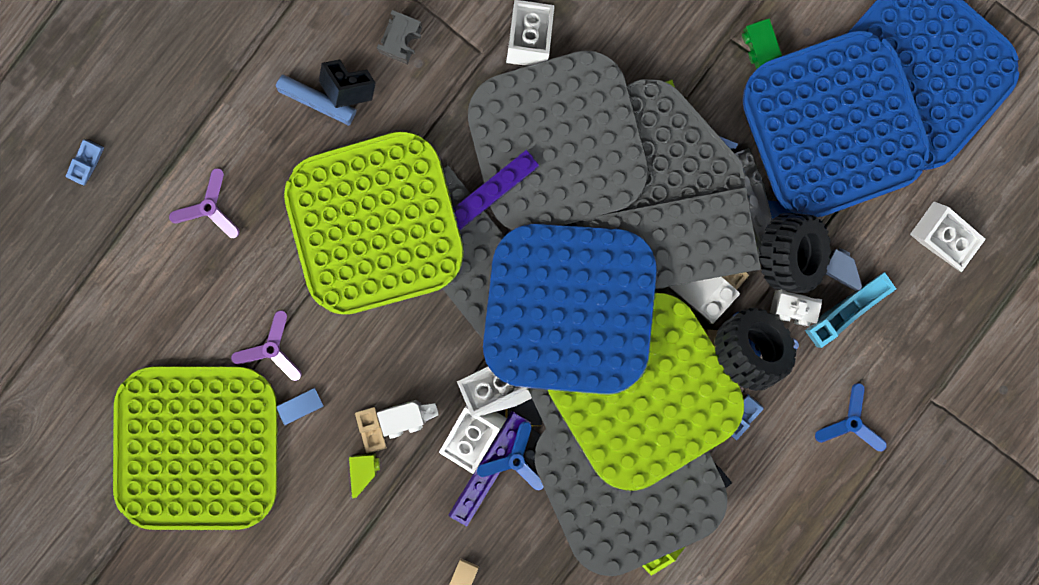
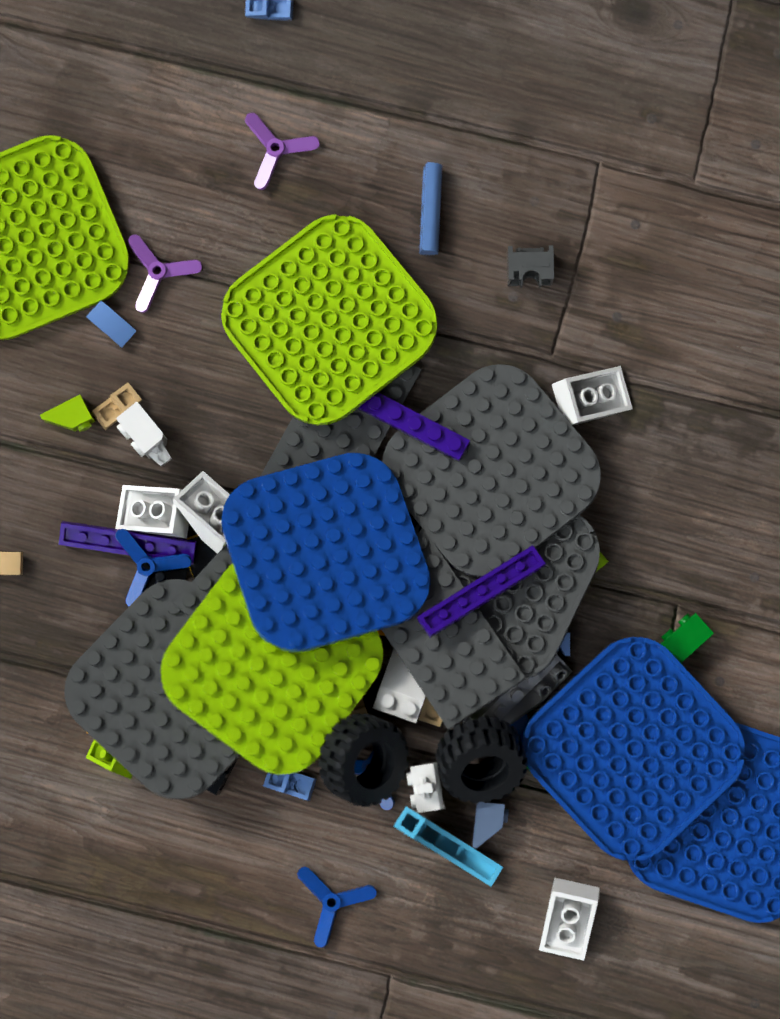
camera: 65 degrees right, 5 degrees down
(346, 87) = (455, 233): black brick -> none
(658, 193) = (481, 591): none -> dark purple plate

